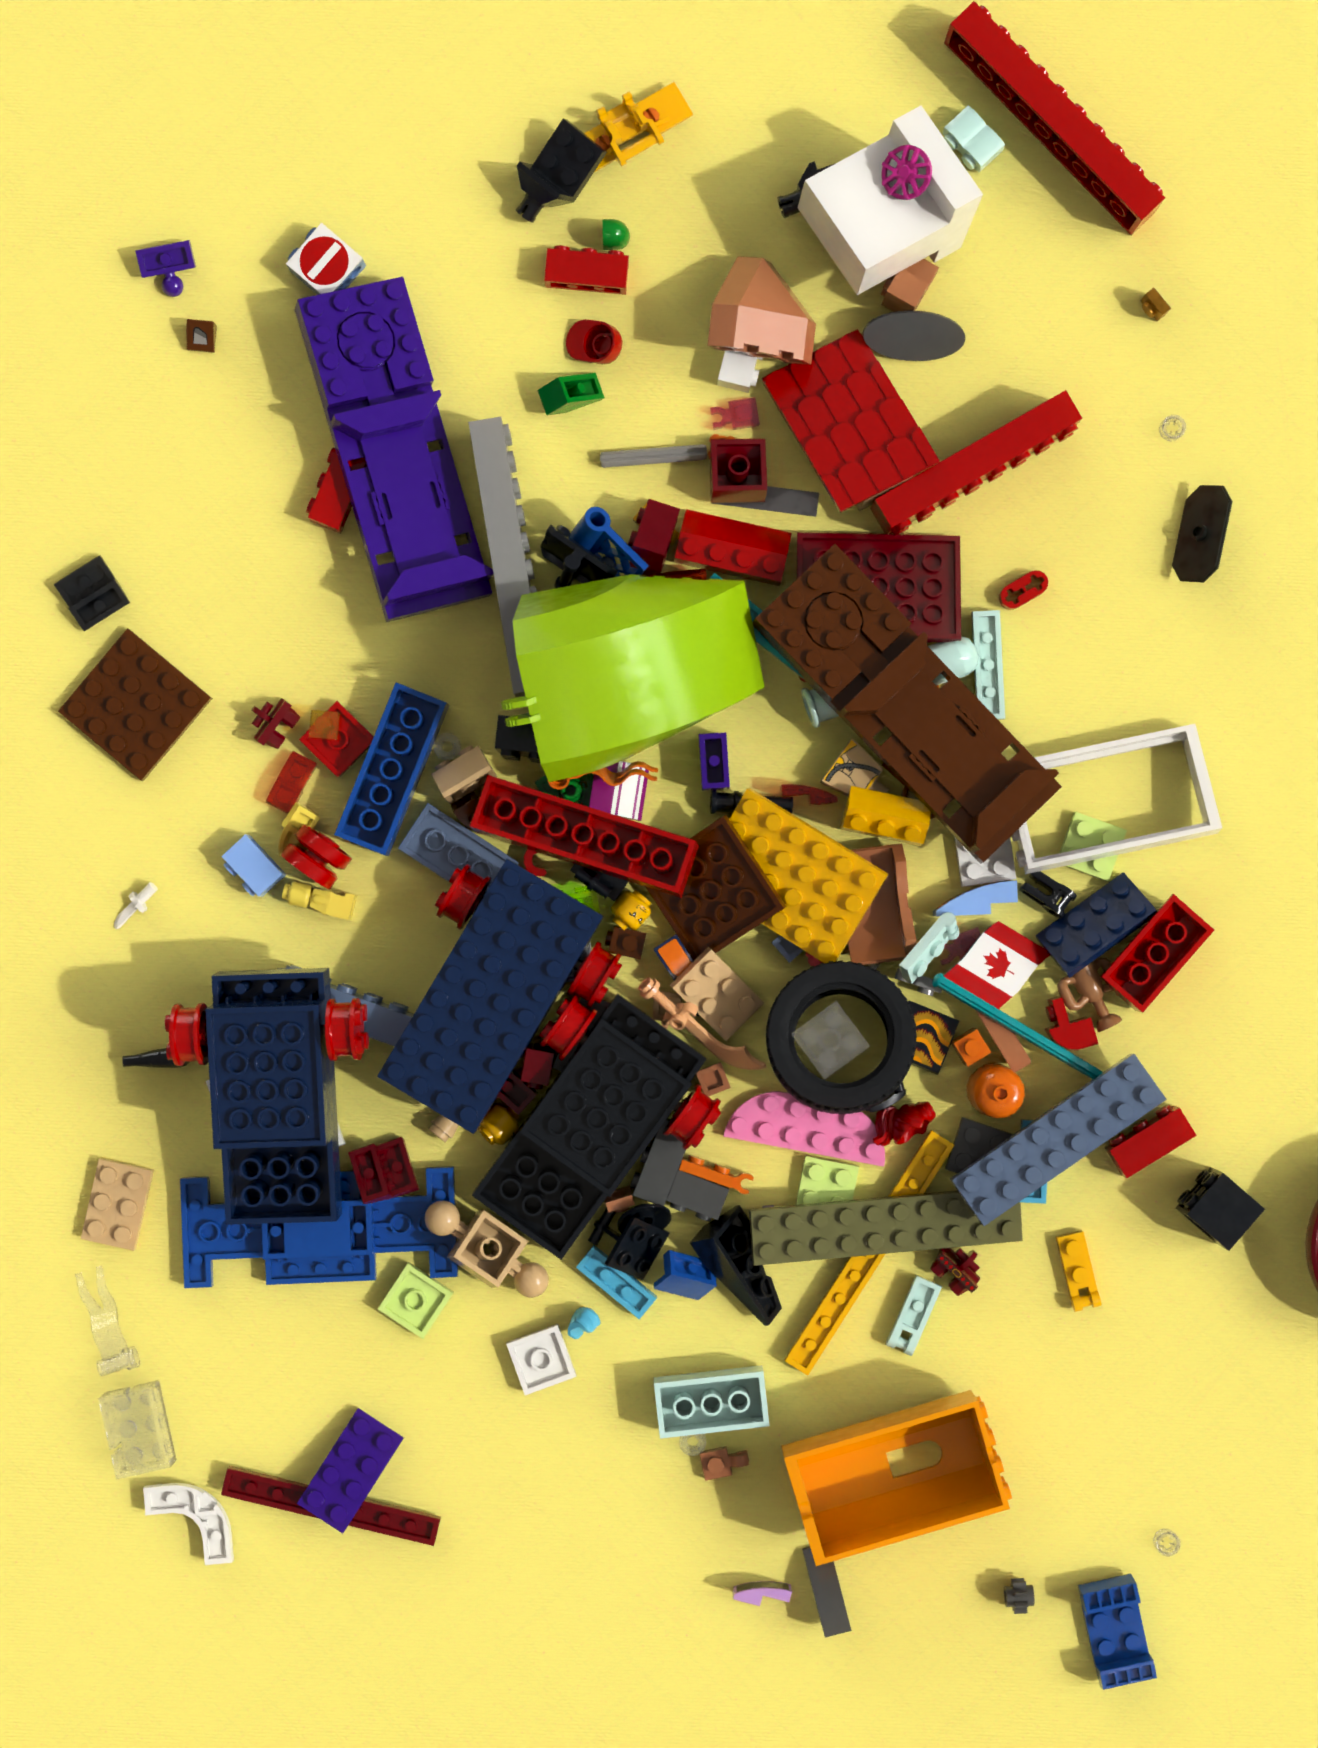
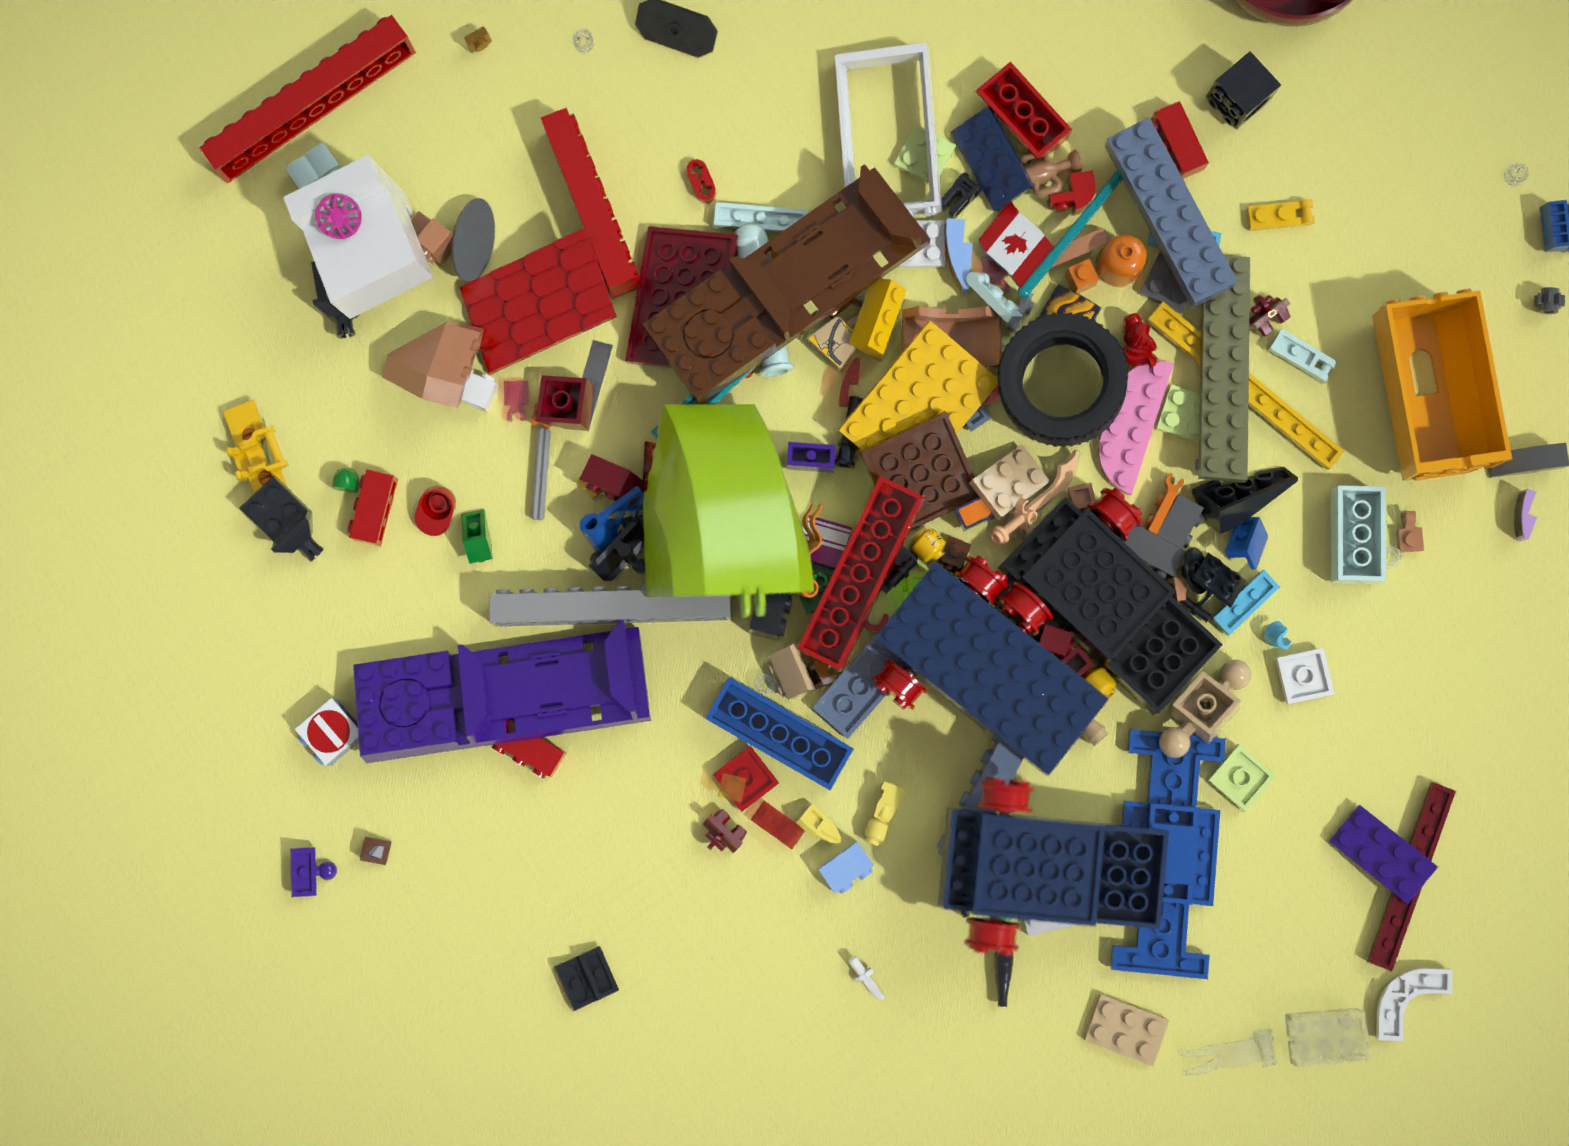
camera: 80 degrees left, 5 degrees down
(135, 704) = (690, 953): reddish brown plate -> none
(318, 853) = (846, 809): red wheel -> none
(383, 1171) = (1126, 789): dark red slope -> none
(732, 547) = (629, 417): red slope -> none
(830, 1040) = (1066, 384): clear plate -> none

